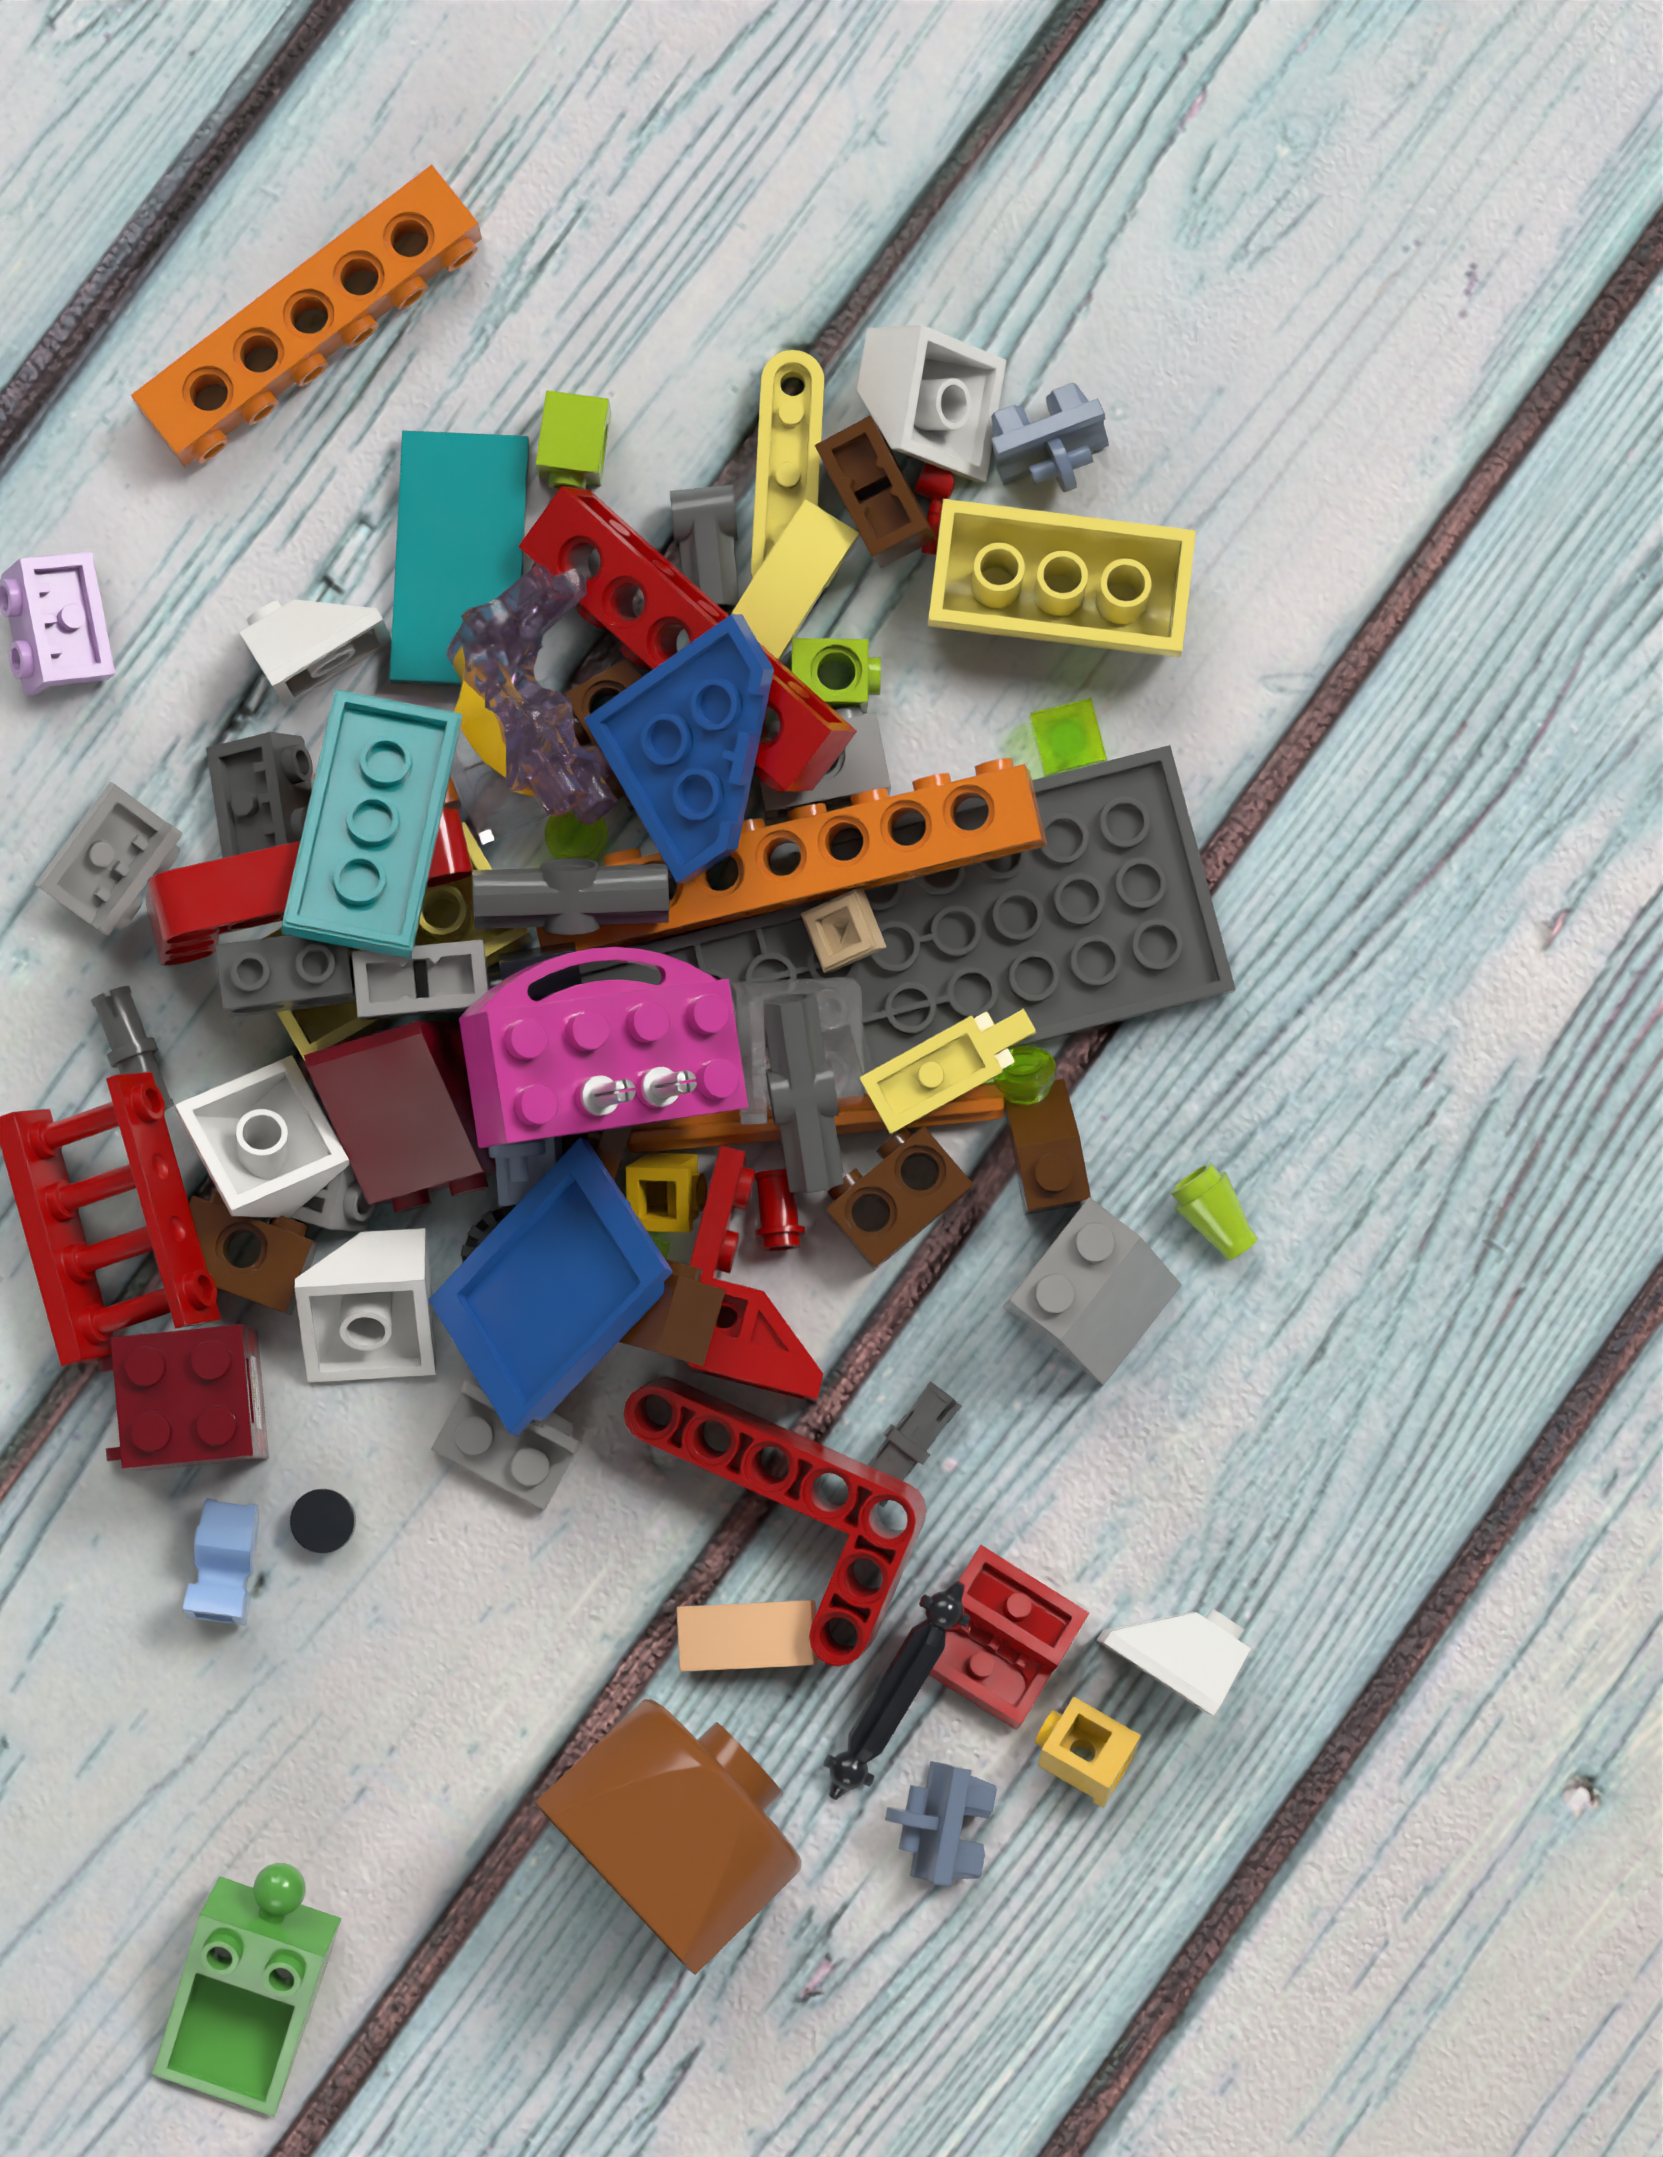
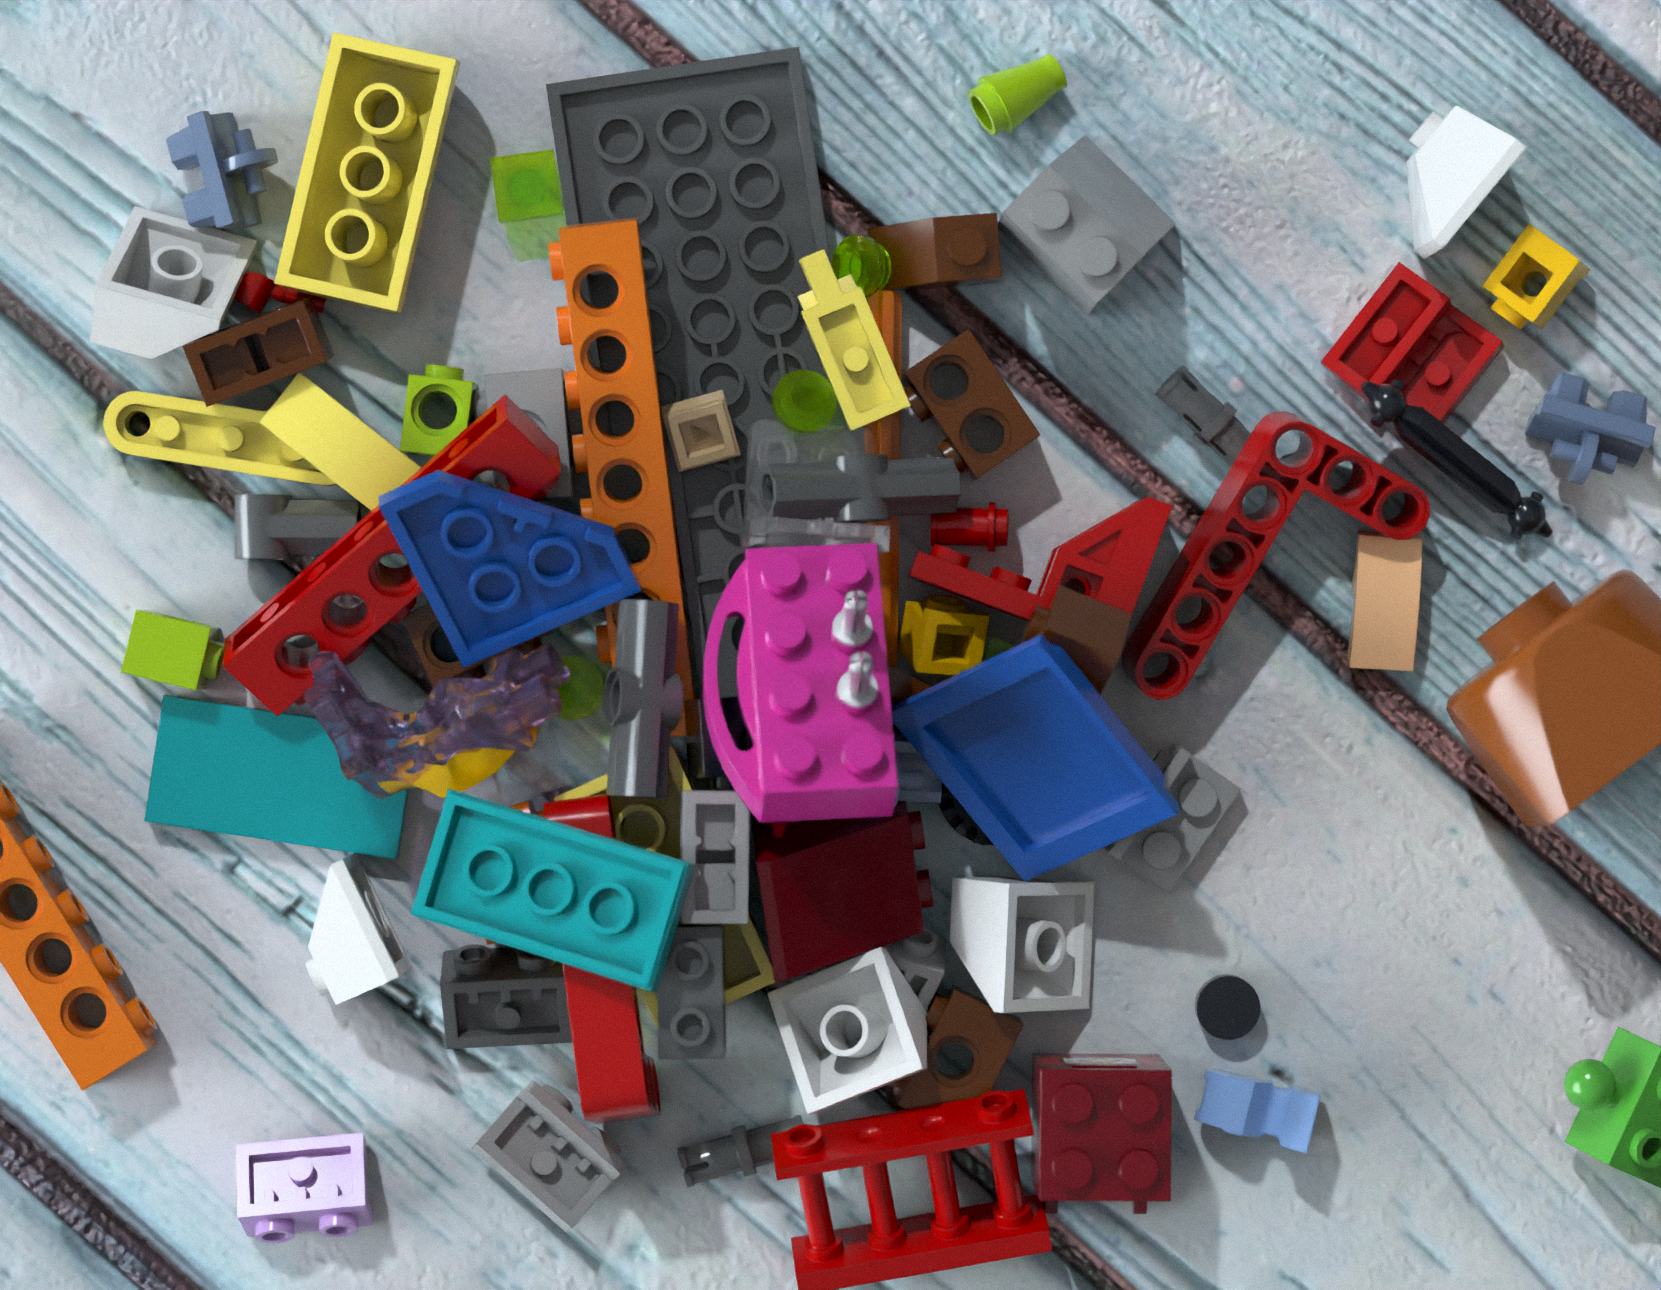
camera: 80 degrees left, 5 degrees up
(883, 1029) = (804, 401): none -> clear neon green plate

